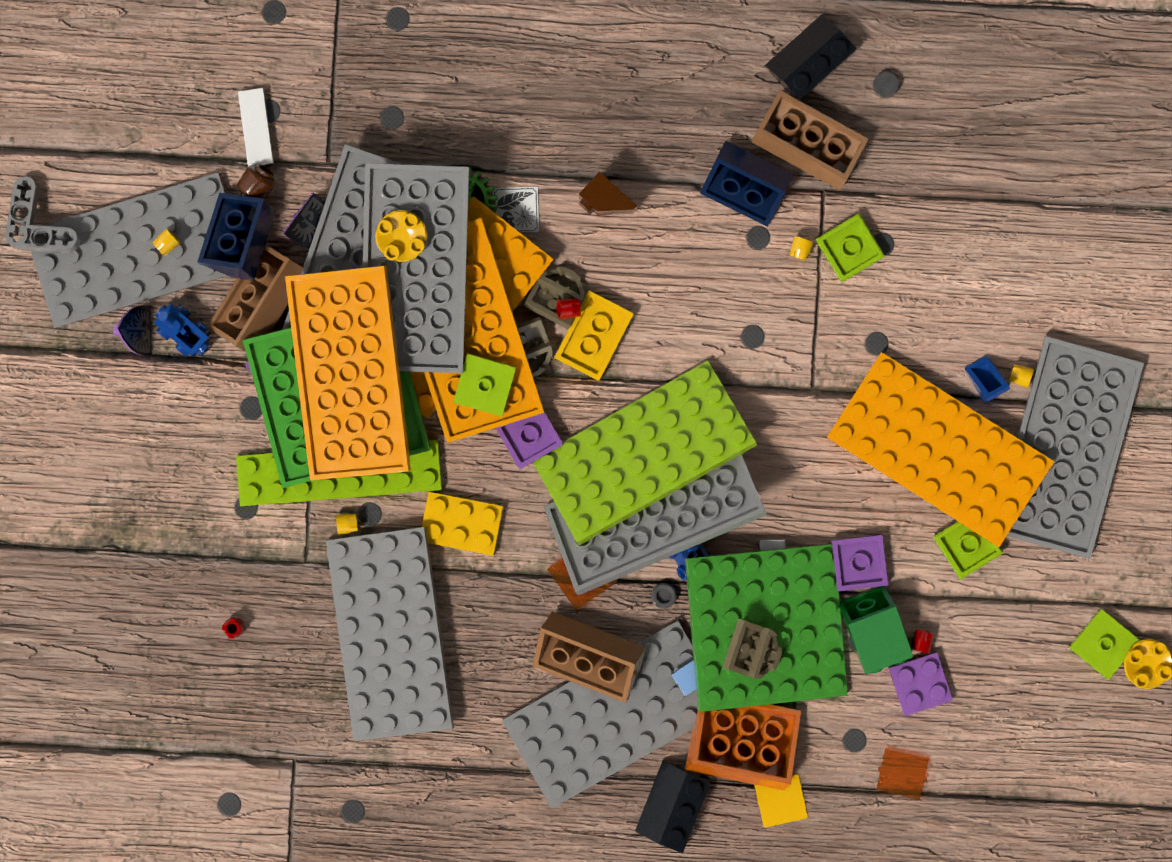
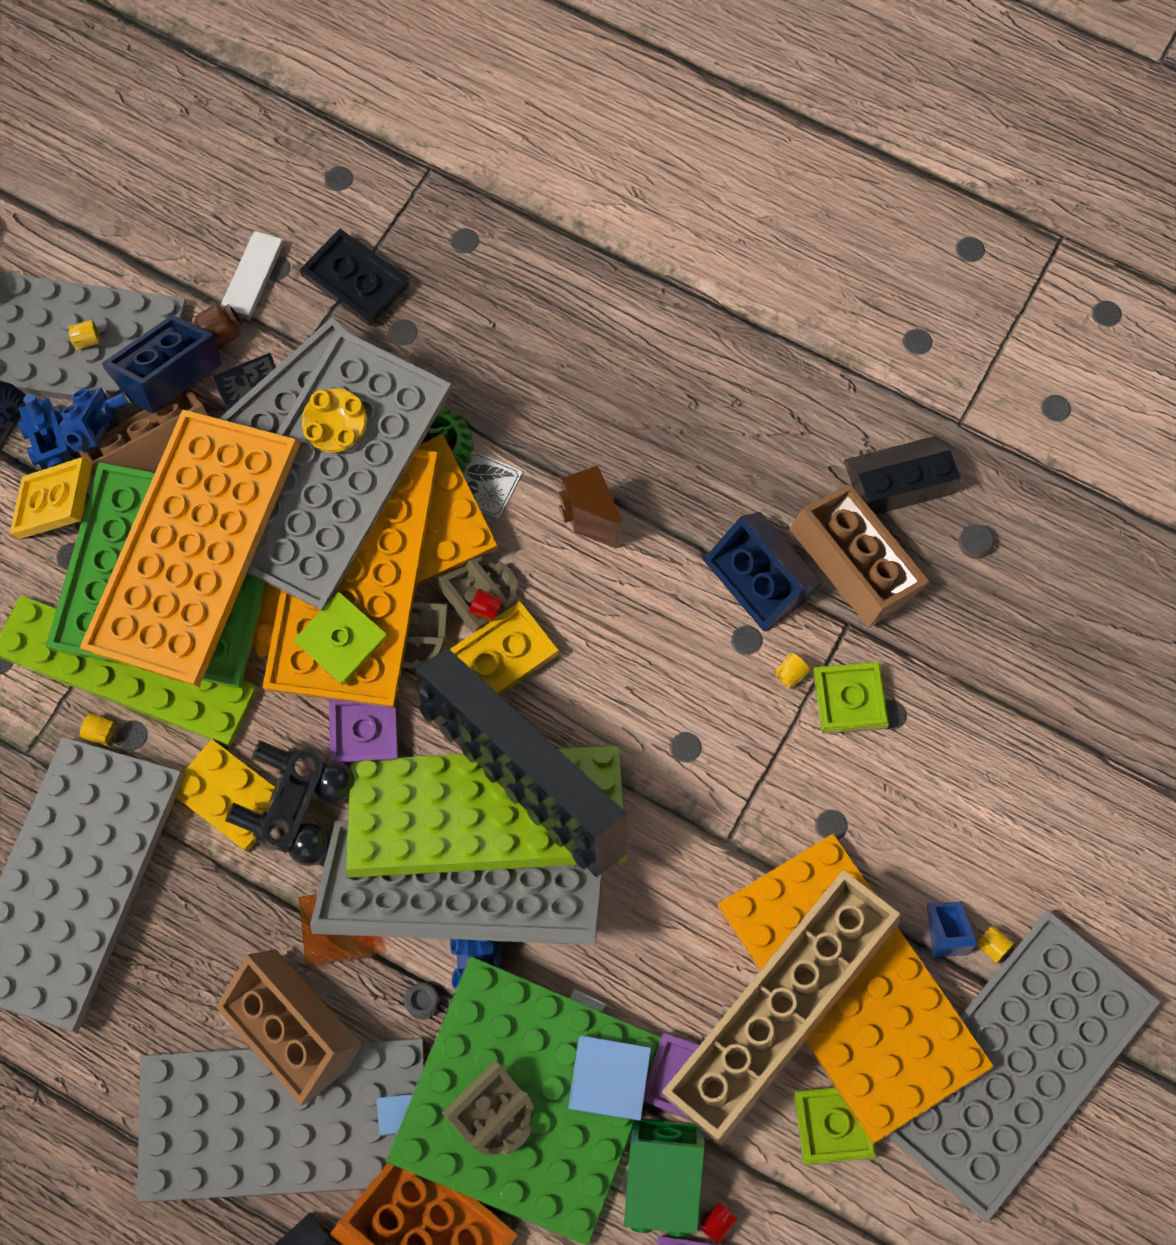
camera: 25 degrees right, 20 degrees down
(209, 305) = (89, 418): none -> blue brick
(219, 379) = (51, 498): none -> yellow plate
(334, 93) = (354, 277): none -> black plate
(509, 509) = (290, 798): none -> black piece
(654, 414) = (523, 763): none -> black brick
(813, 589) = (609, 1078): none -> light blue tile
(903, 492) = (781, 1007): none -> tan brick

